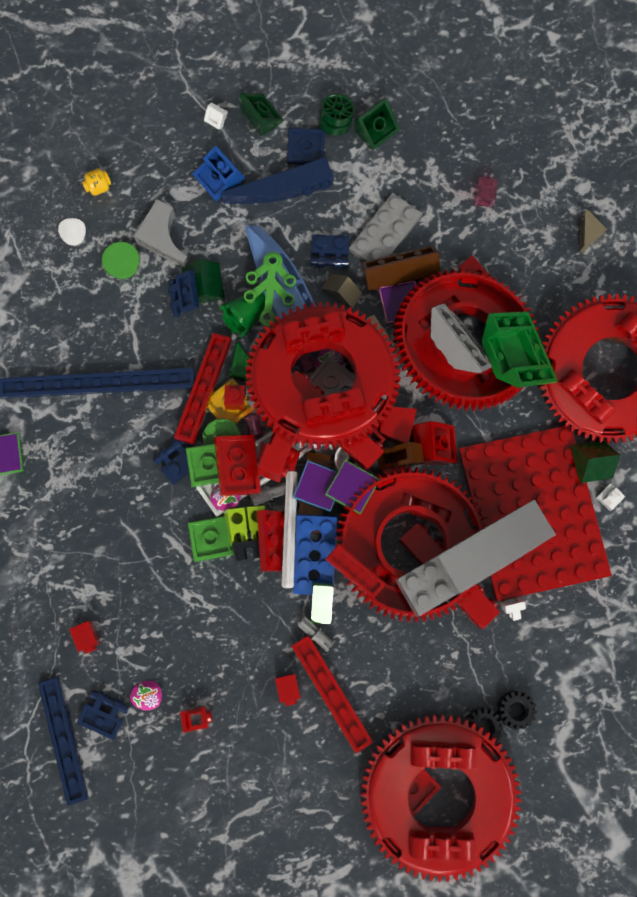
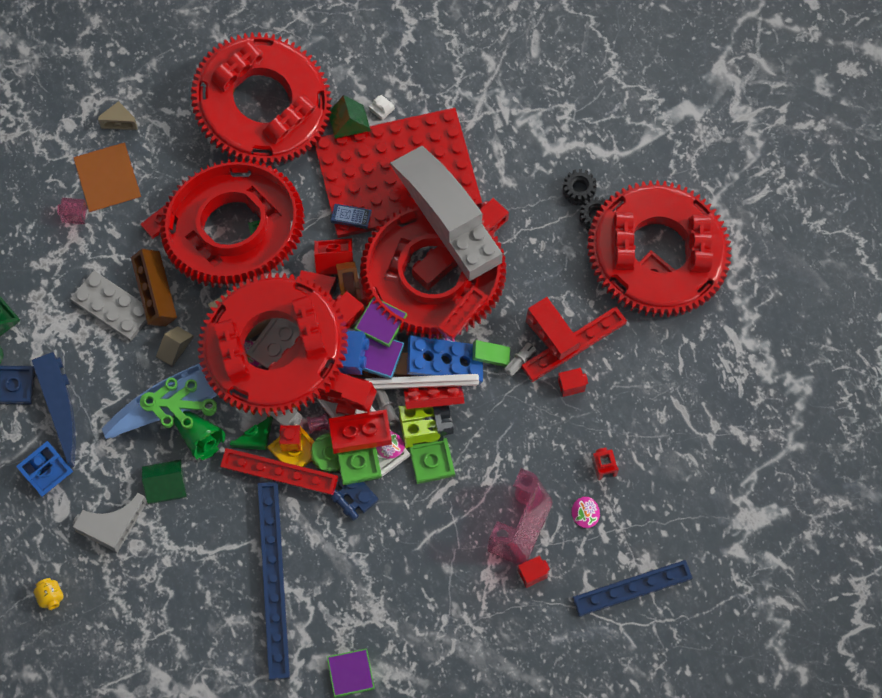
camera: 85 degrees left, 10 degrees down
(72, 231) = (101, 619): white sticker -> none
(100, 721) = (612, 552): dark blue plate -> none
(121, 260) = (137, 565): bright green tile -> none
(154, 645) = (521, 540): none -> clear pink windscreen
(183, 293) = (176, 491): dark blue plate -> none
(320, 460) = (355, 354): none -> blue brick
(330, 245) = (126, 355): dark blue plate -> none
(342, 669) = (552, 328): none -> red wedge
(392, 297) = (187, 293): dark purple tile -> none
(456, 341) = (243, 223): light grey wedge -> none
(478, 461) = (351, 216): none -> tile
(513, 607) = (487, 188): white tile -> none
(516, 350) = (249, 174): green slope -> none
(525, 225) = (107, 177): none -> dark orange sticker

